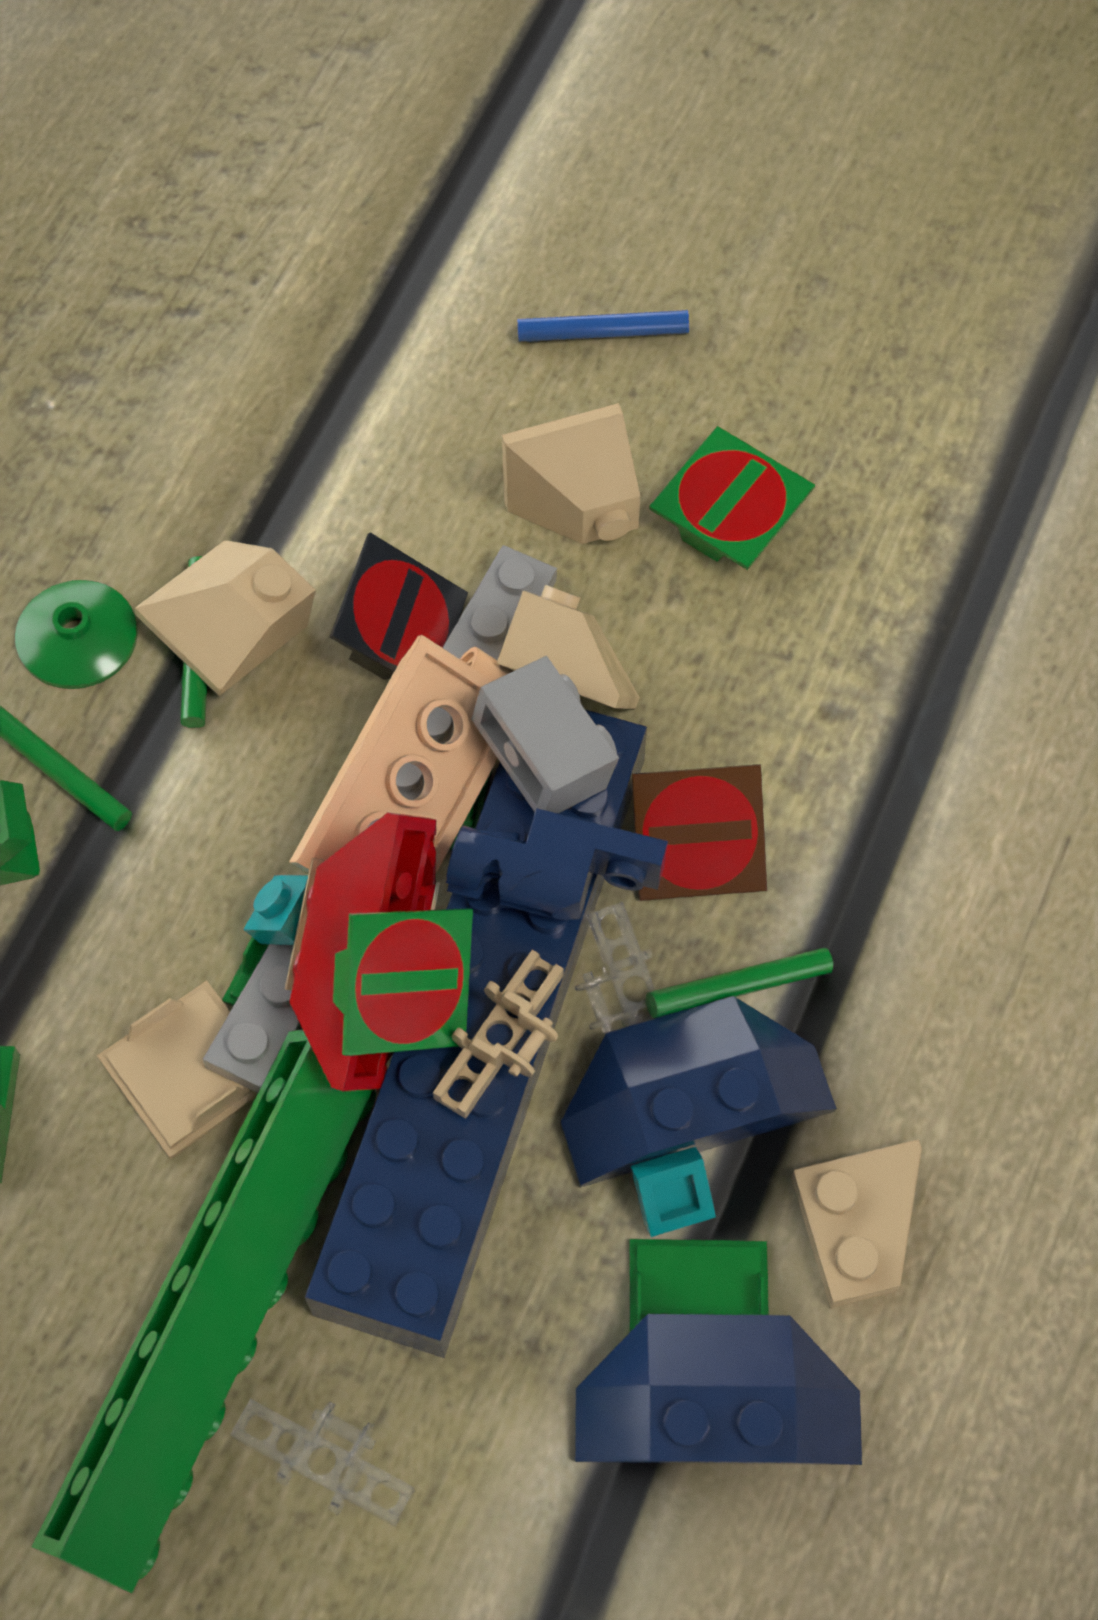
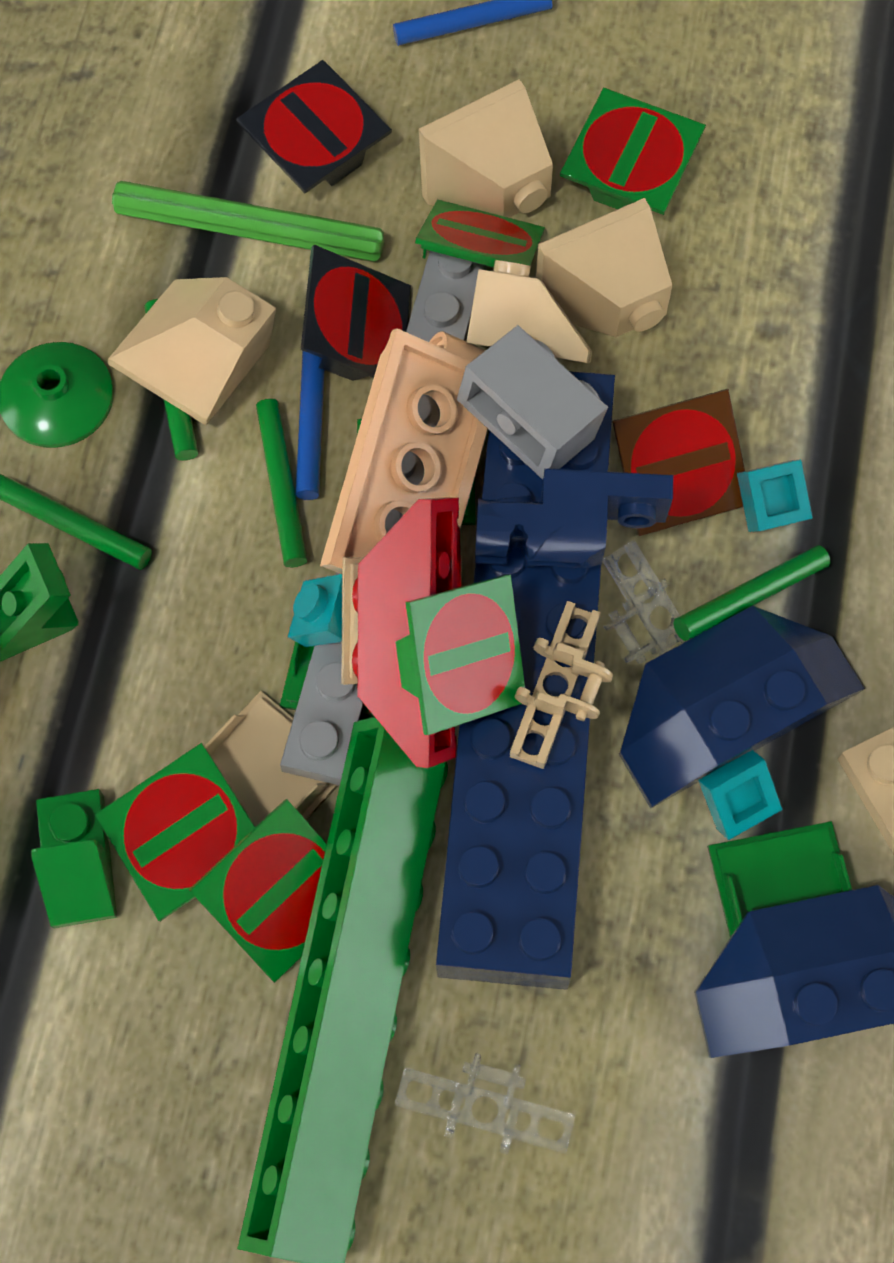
camera: 10 degrees left, 5 degrees up
(84, 1107) = (175, 828): none -> piece
(156, 1184) = (267, 889): none -> piece
(281, 771) = (281, 483): none -> green bar
(317, 494) = (247, 220): none -> bright green axle
(325, 721) = (310, 428): none -> blue bar
(408, 411) = (315, 127): none -> piece
(548, 556) = (478, 235): none -> piece
(668, 619) = (609, 272): none -> tan slope
(789, 886) = (774, 495): none -> teal plate

